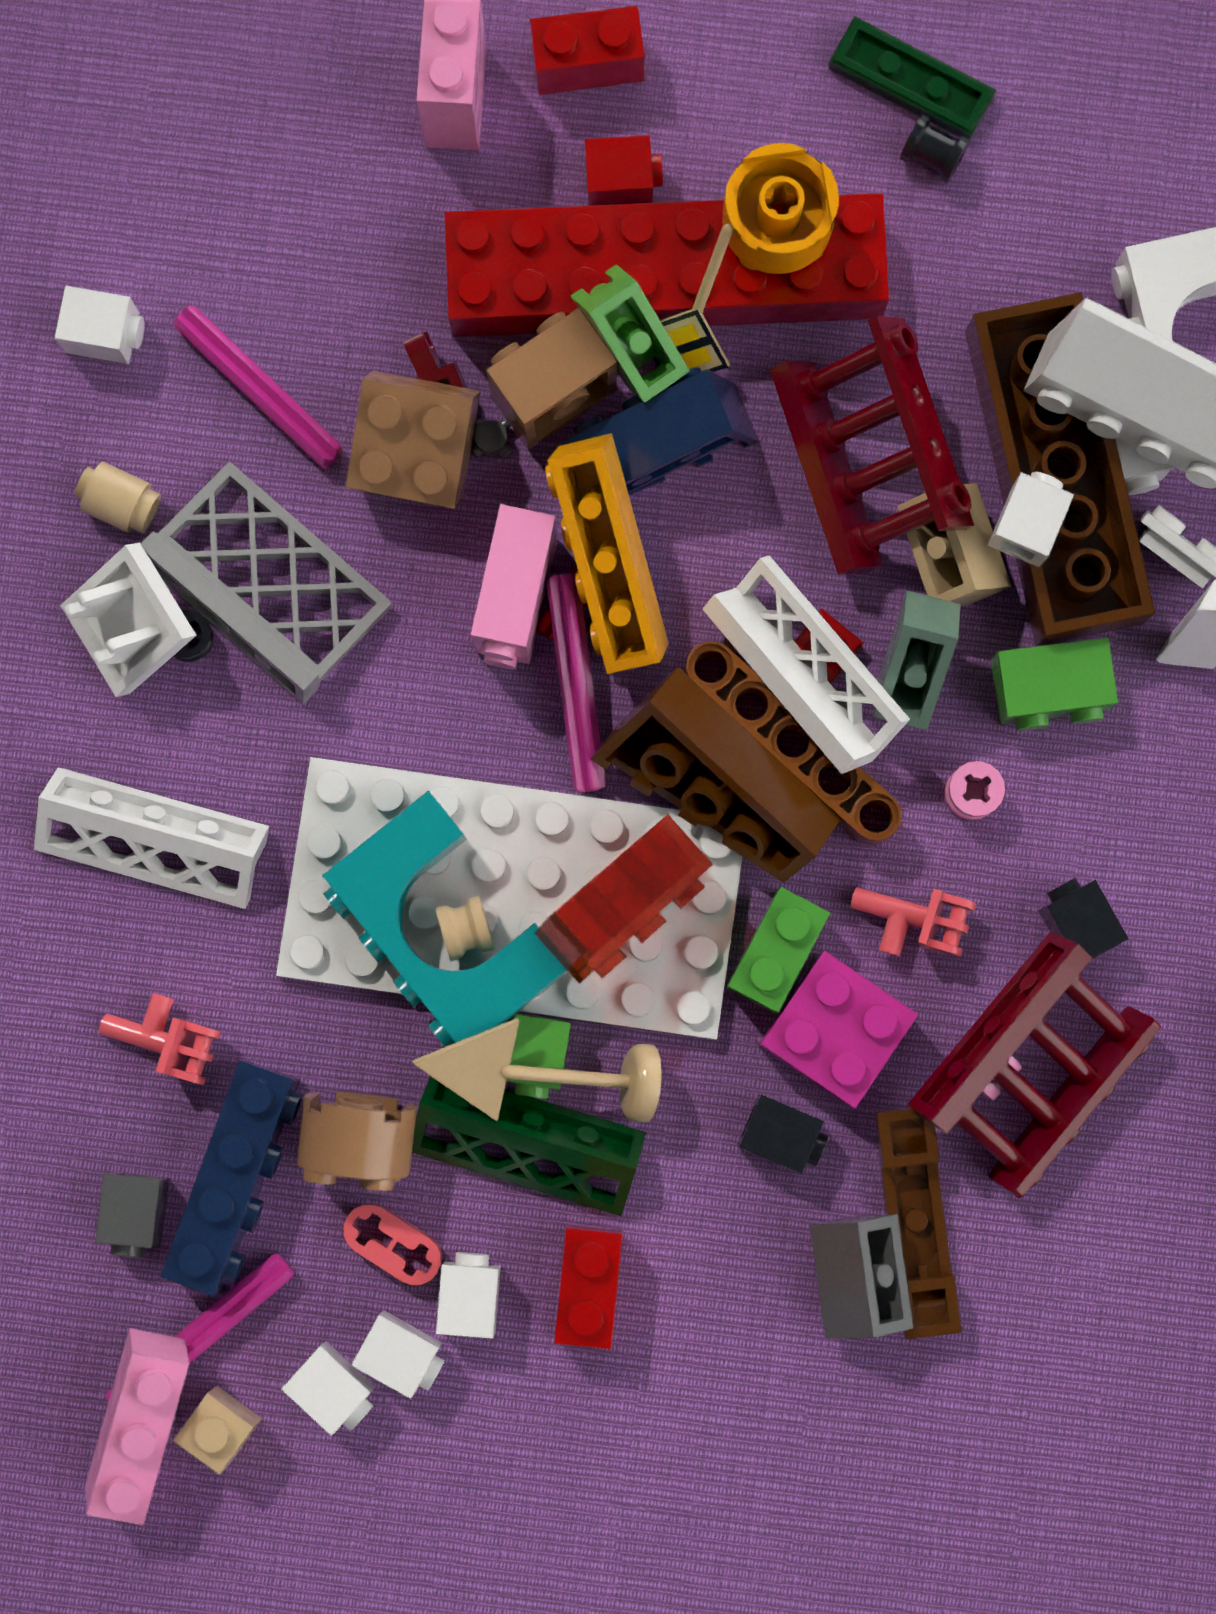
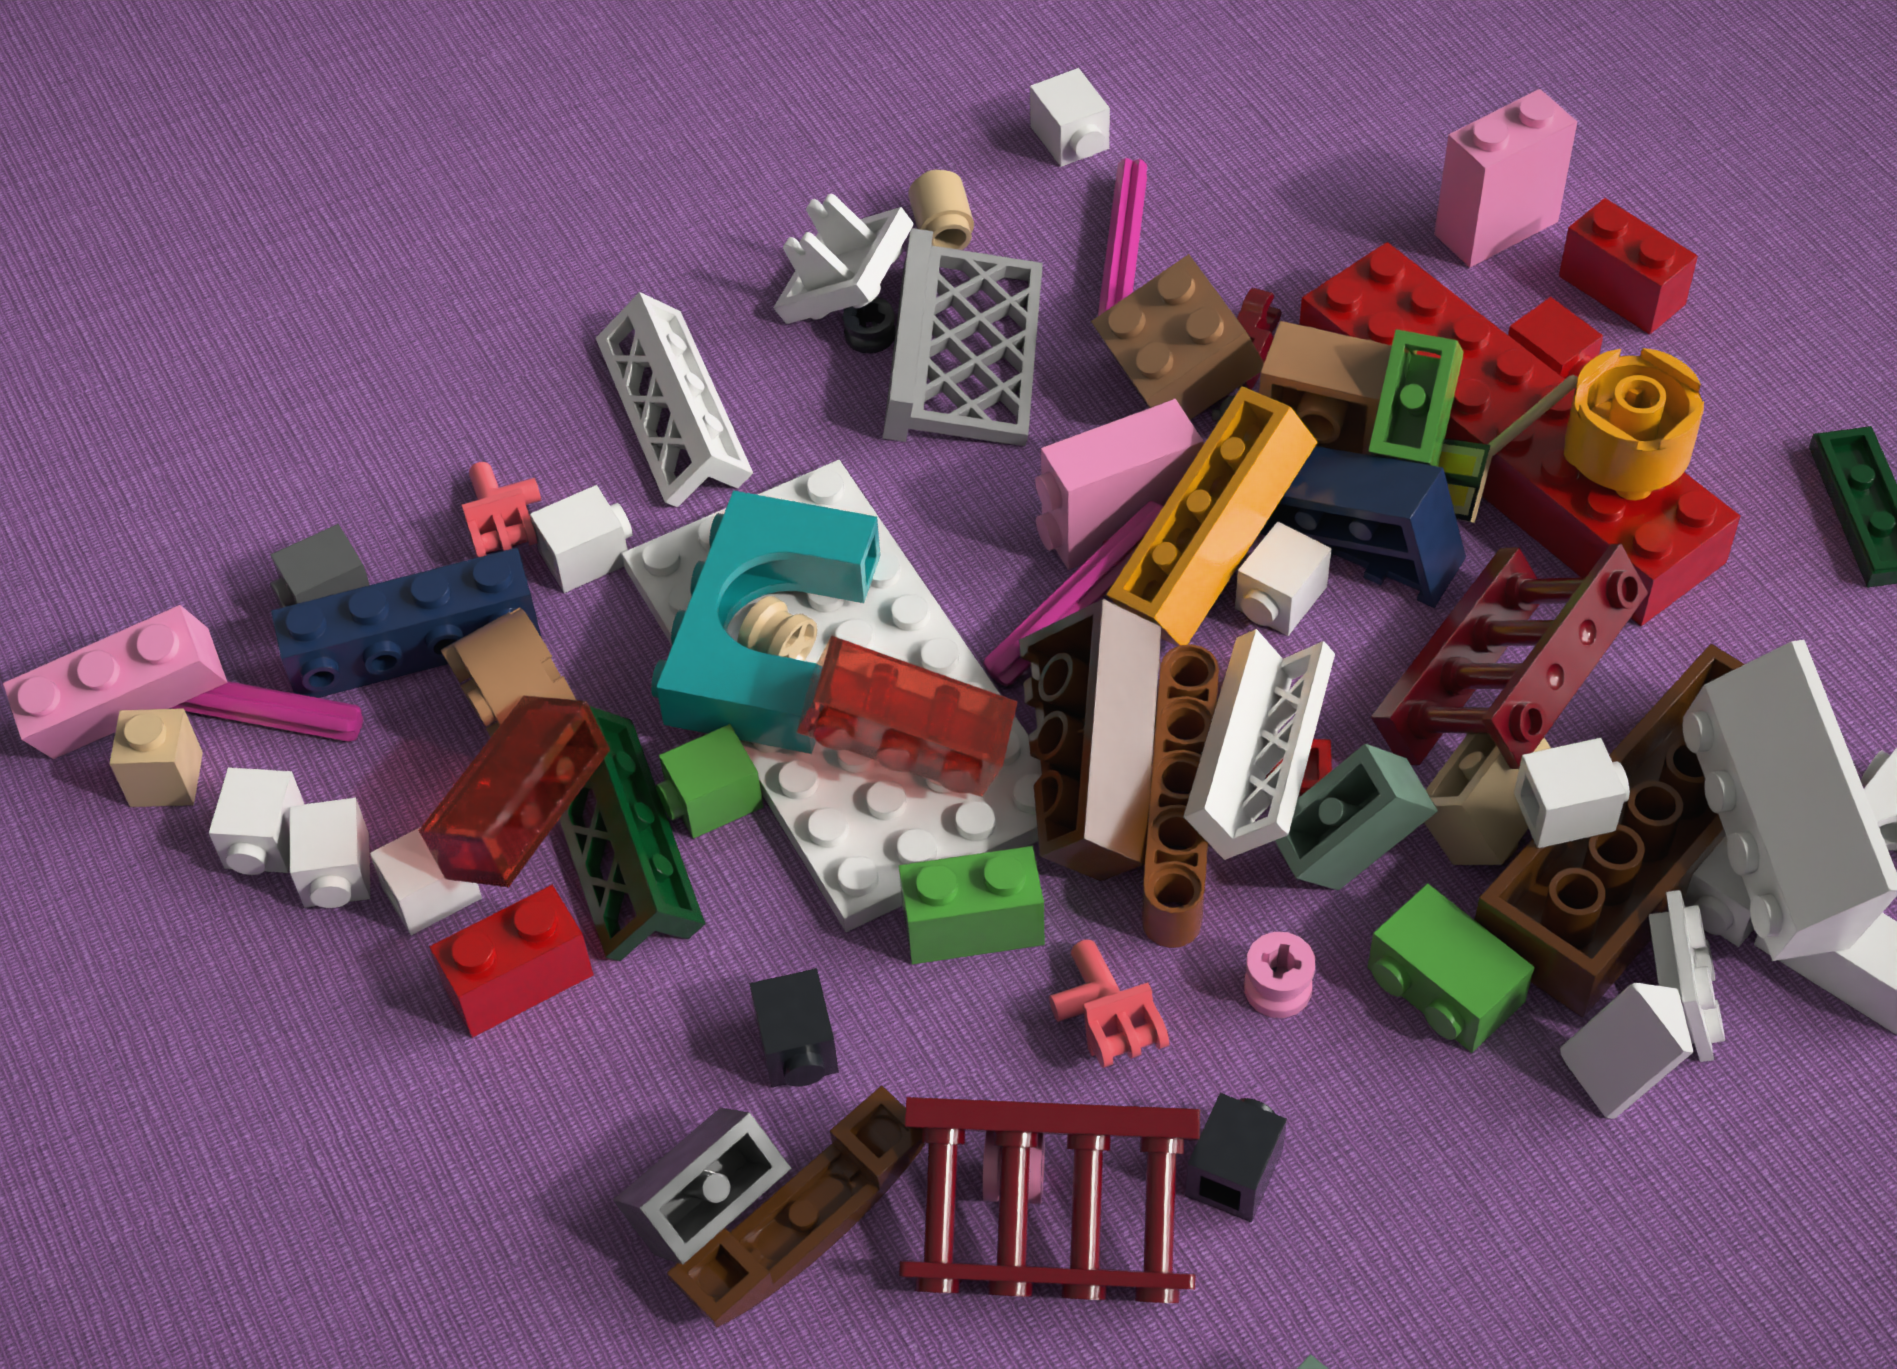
camera: 55 degrees right, 30 degrees down
(242, 994) = (581, 537): none -> white brick
(386, 1256) = (421, 790): coral beam -> none
(476, 1207) = (515, 791): none -> clear red brick
(481, 1065) = (650, 713): tan piece -> none
(670, 534) = (1282, 578): none -> white brick
(838, 1029) = (937, 1006): dark pink brick -> none
(934, 149) = (1828, 553): black bush -> none

